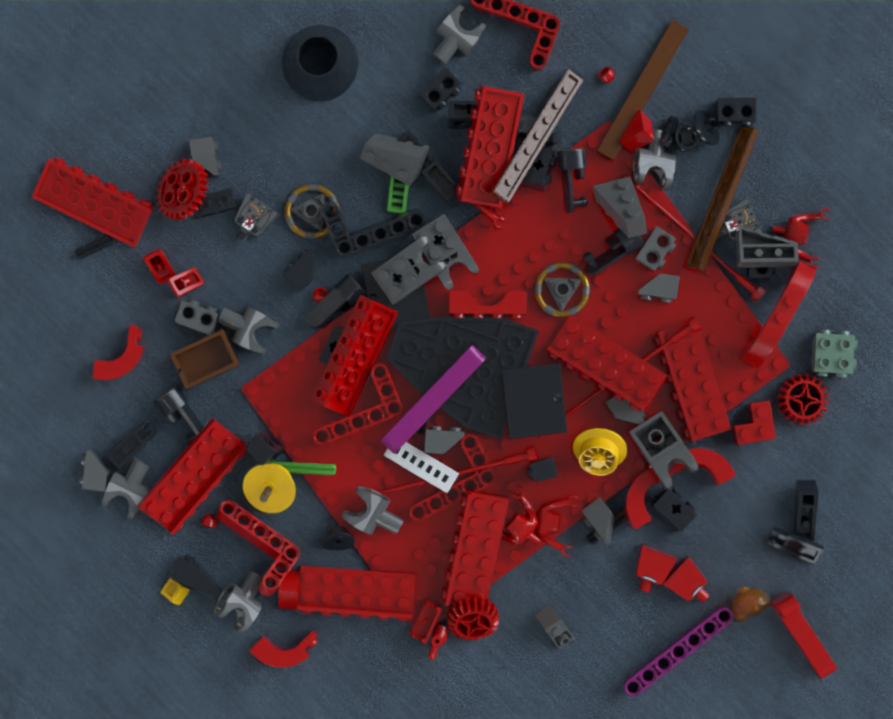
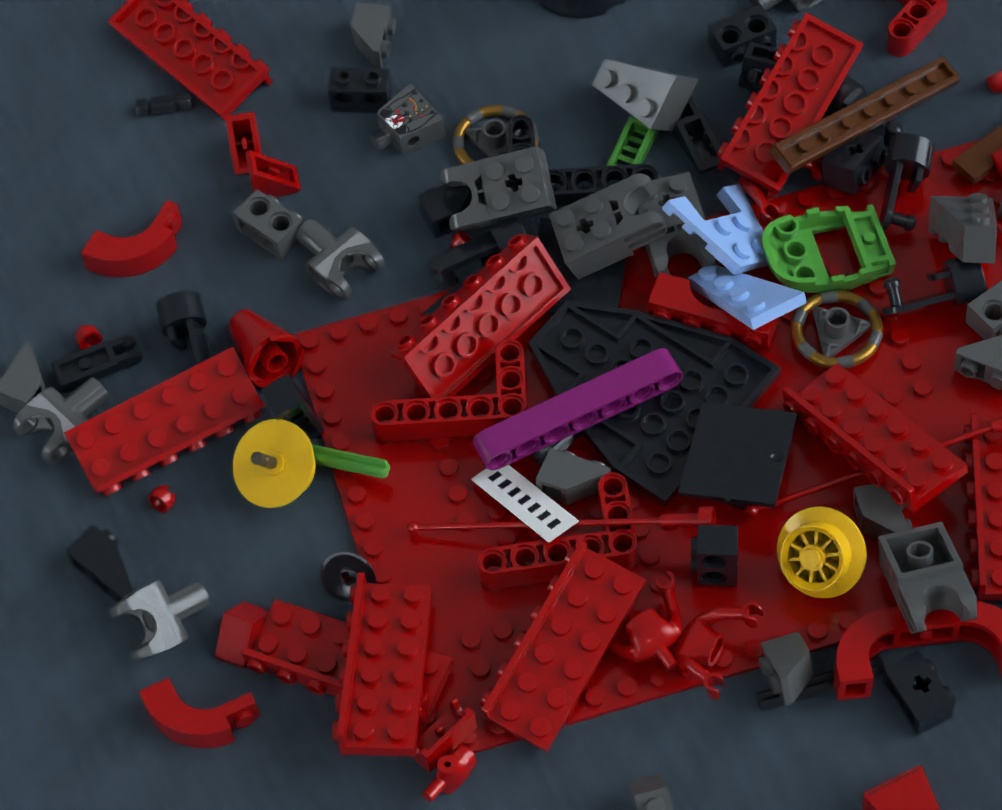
camera: 30 degrees right, 30 degrees down
(118, 428) = (91, 335): none -> red hinge
(174, 591) = (65, 584): yellow slope -> none
(182, 189) = (319, 54): red gear -> none
(205, 359) = (256, 274): reddish brown piece -> none
(228, 407) = (265, 348): none -> red cone
(261, 542) = (251, 564): red beam -> none
(335, 260) = (493, 191): none -> dark grey brick
(374, 513) = (422, 549): dark grey connector -> none
(382, 597) = (383, 669): none -> red bracket
(473, 618) = (509, 743): red gear -> none
(487, 252) = (731, 238): none -> light blue wing
(507, 295) = (746, 296): none -> light blue wing
(525, 251) = (796, 258): none -> bright green slope
(653, 567) = (854, 767): red torso -> none

